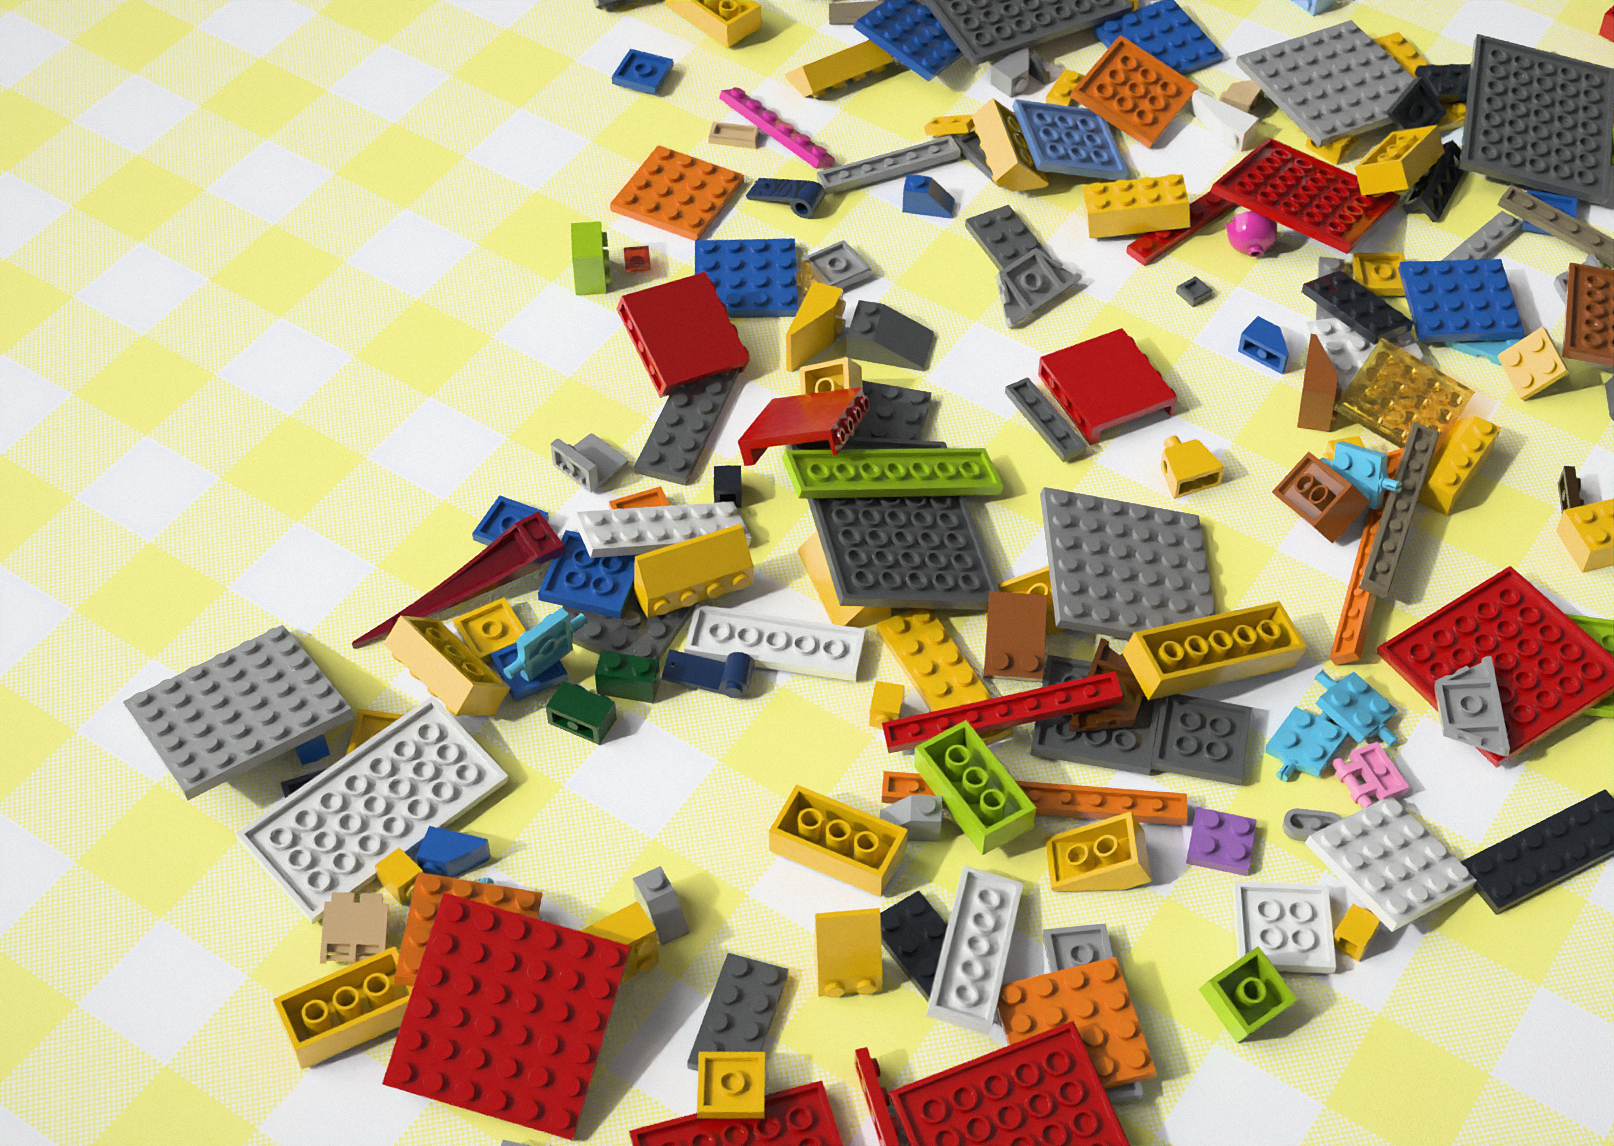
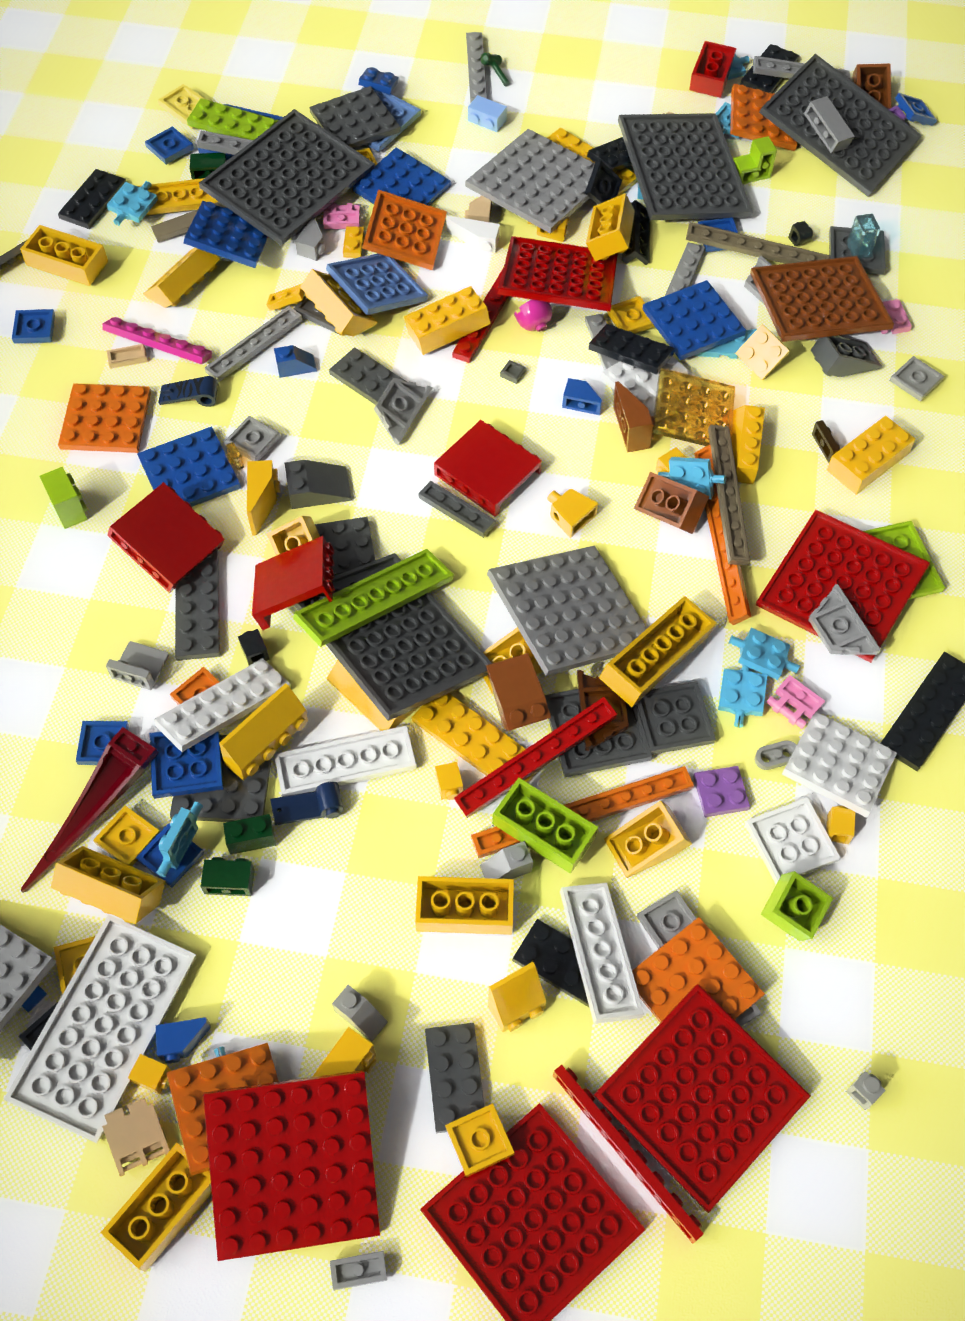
camera: 25 degrees left, 10 degrees up
(637, 259) = (99, 483): clear red plate -> none
(1037, 69) = (327, 232): dark grey tile -> none
(1065, 55) = (341, 216): none -> bright pink plate

